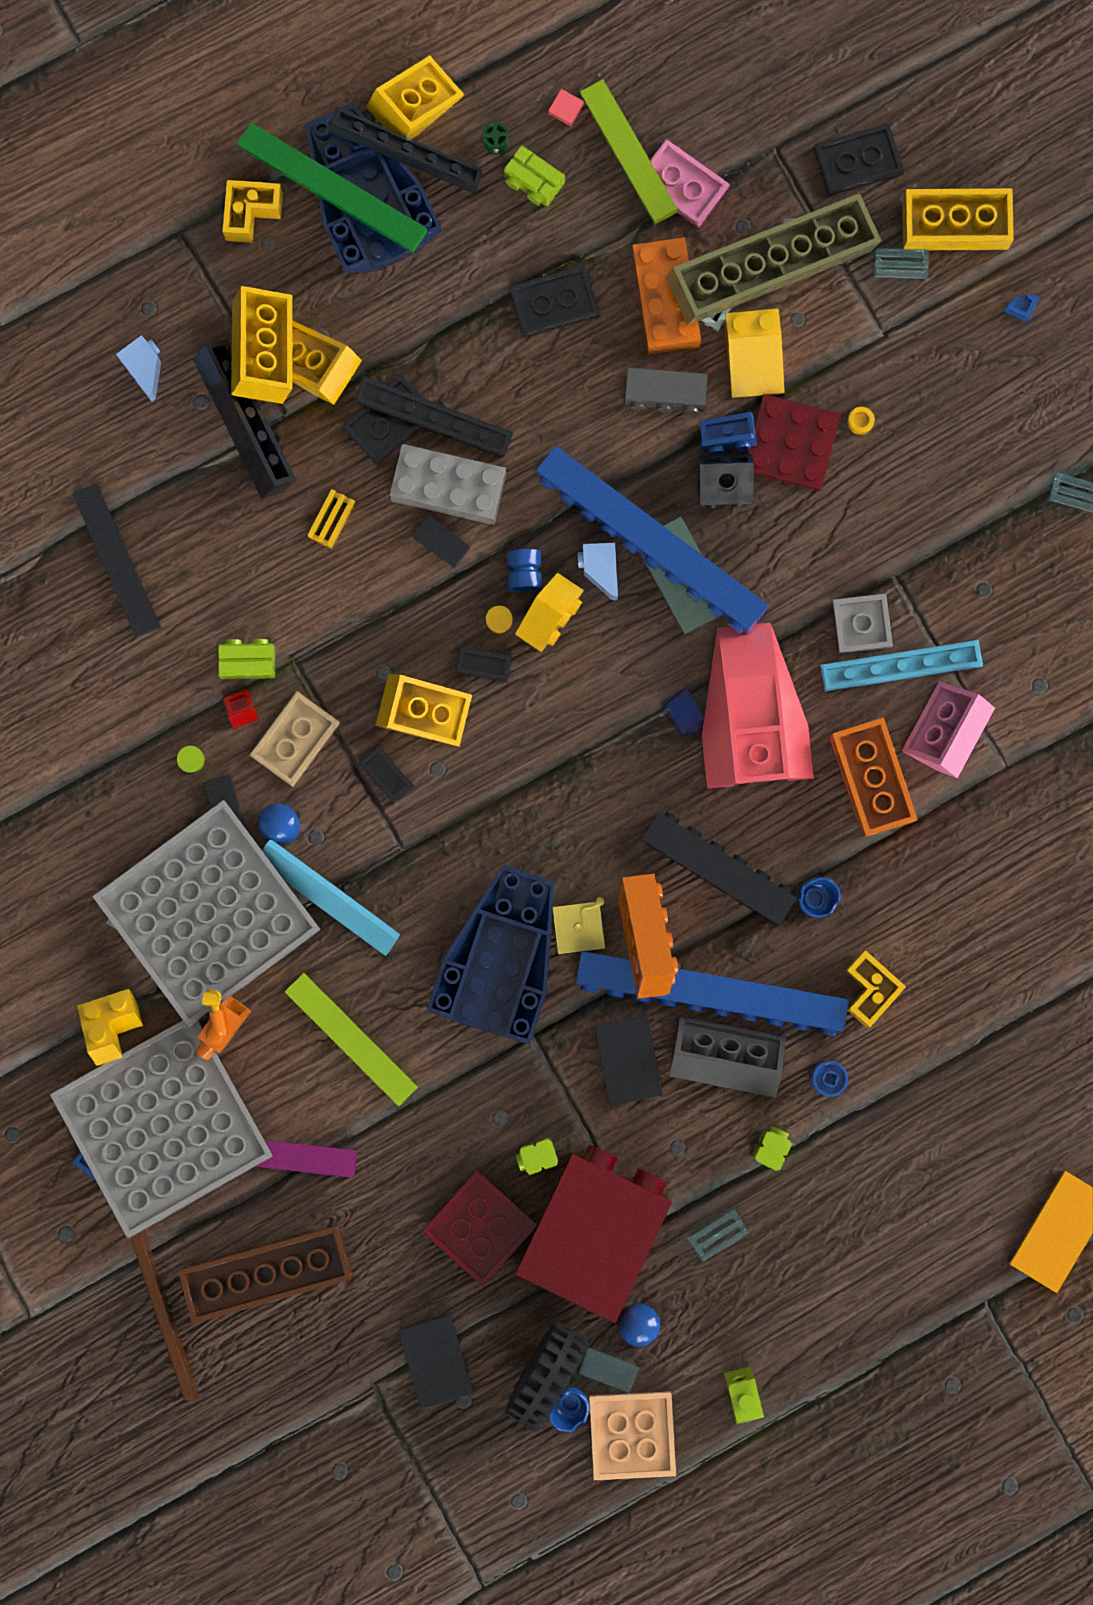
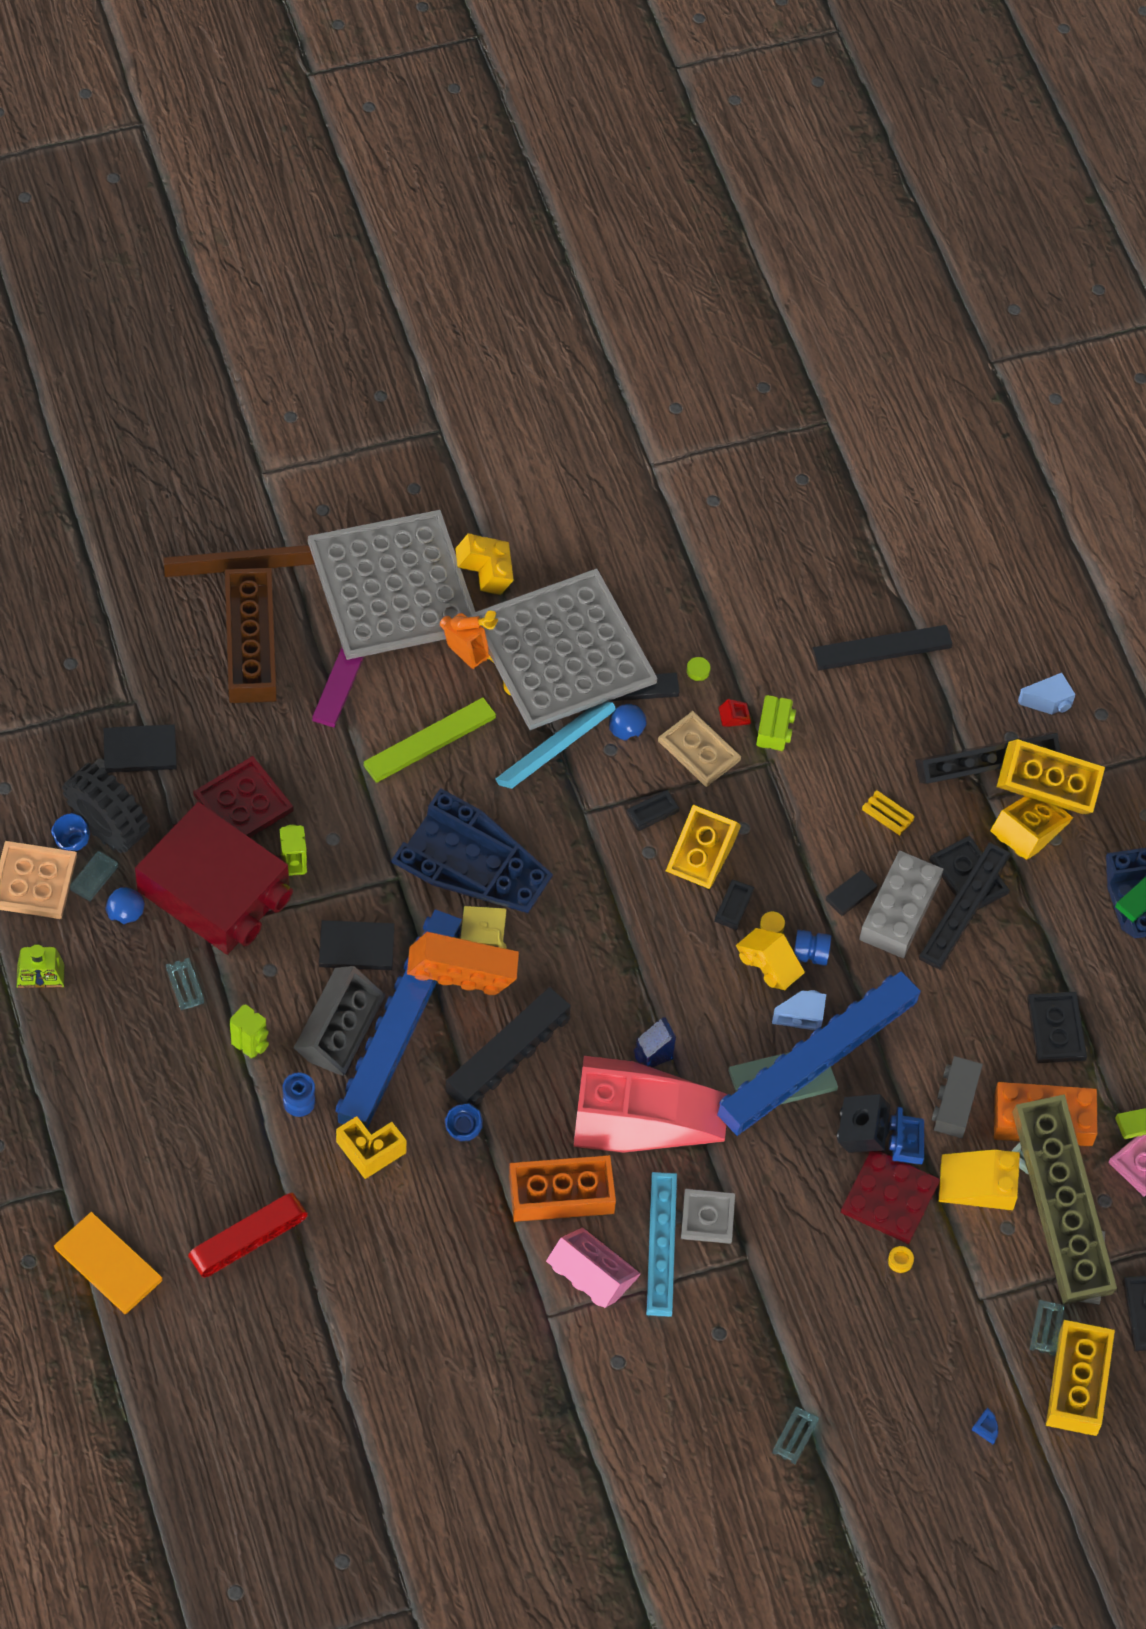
camera: 95 degrees right, 25 degrees down
(997, 1093) = (247, 1235): none -> red beam

